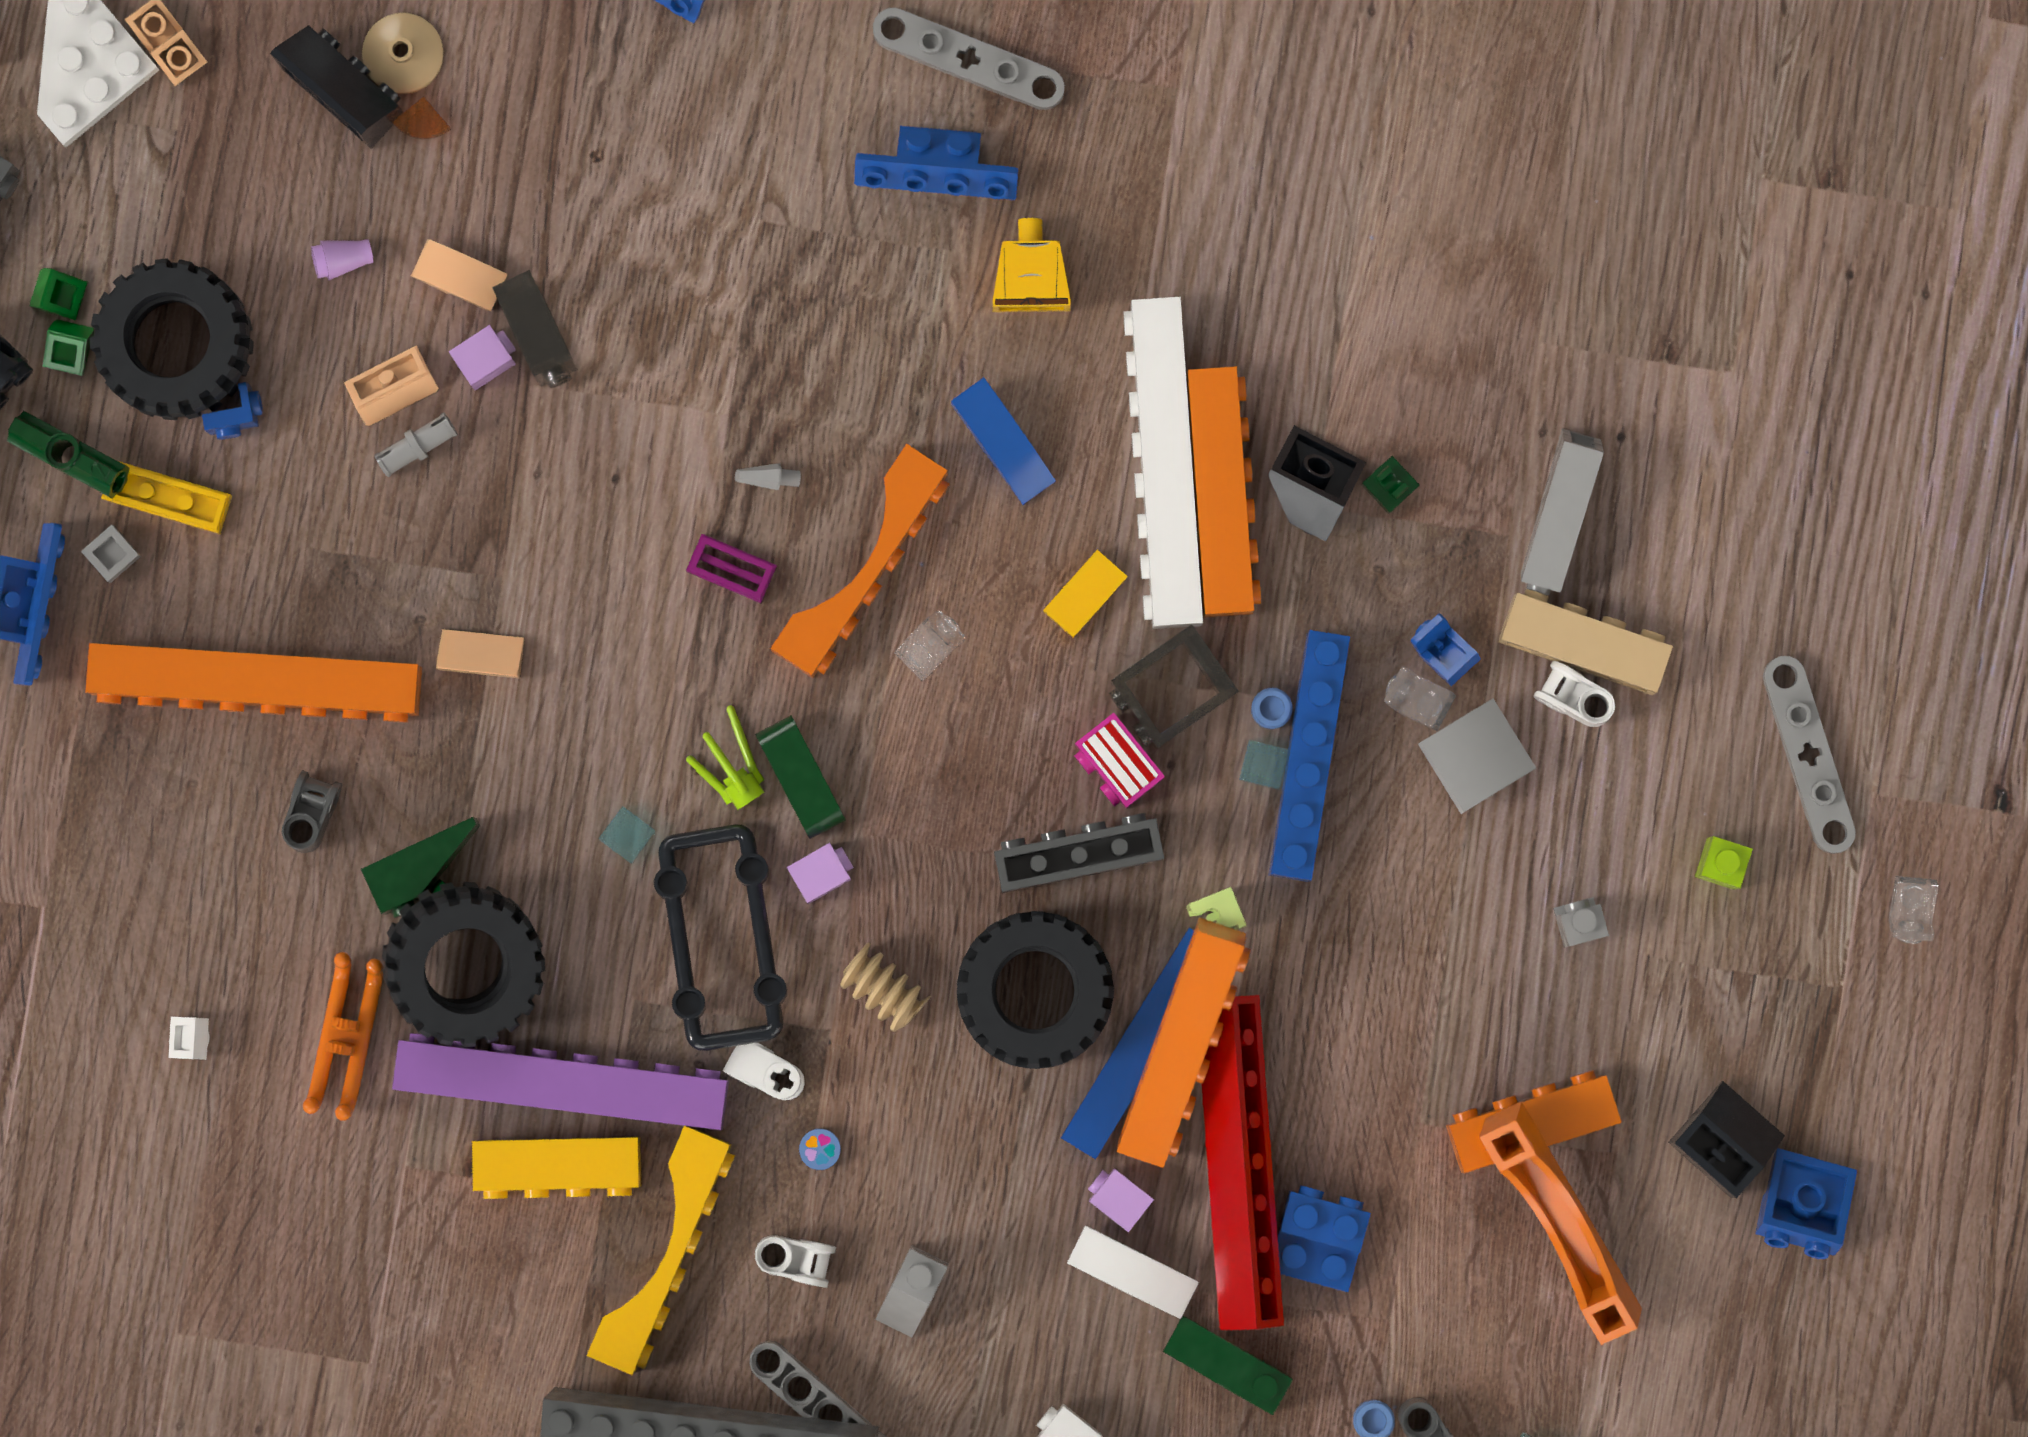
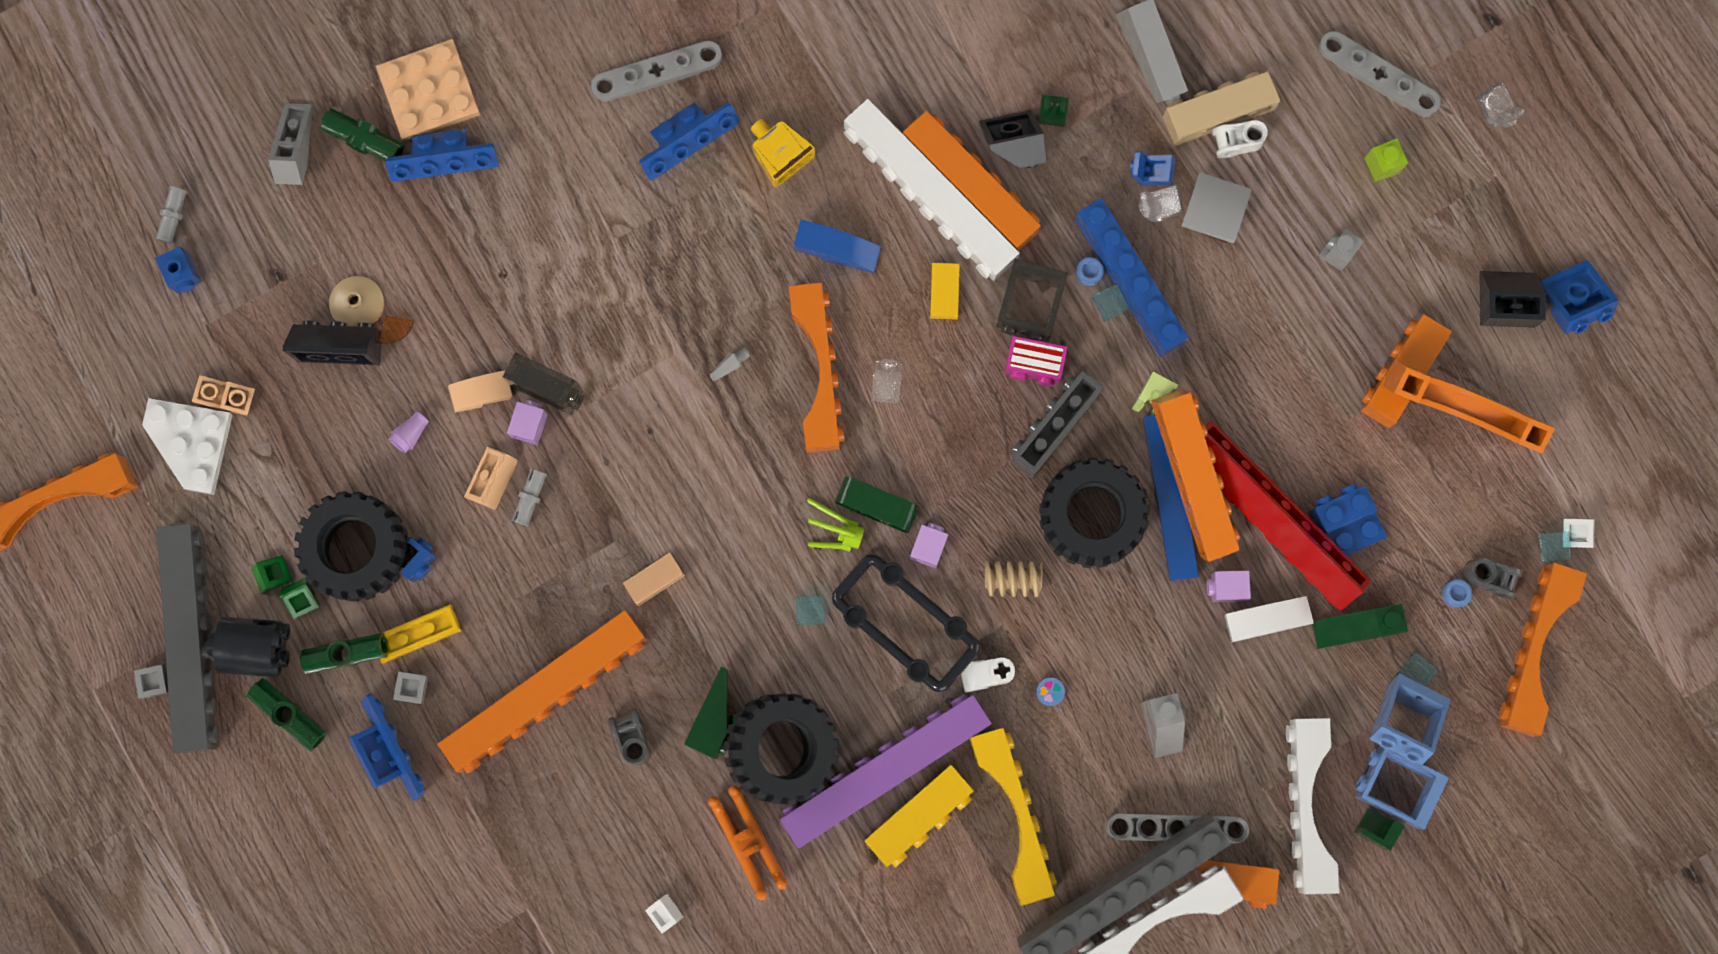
camera: 35 degrees left, 5 degrees down
(699, 555) = (753, 437): magenta tile -> none
(798, 1260) = (1091, 758): white piece -> none

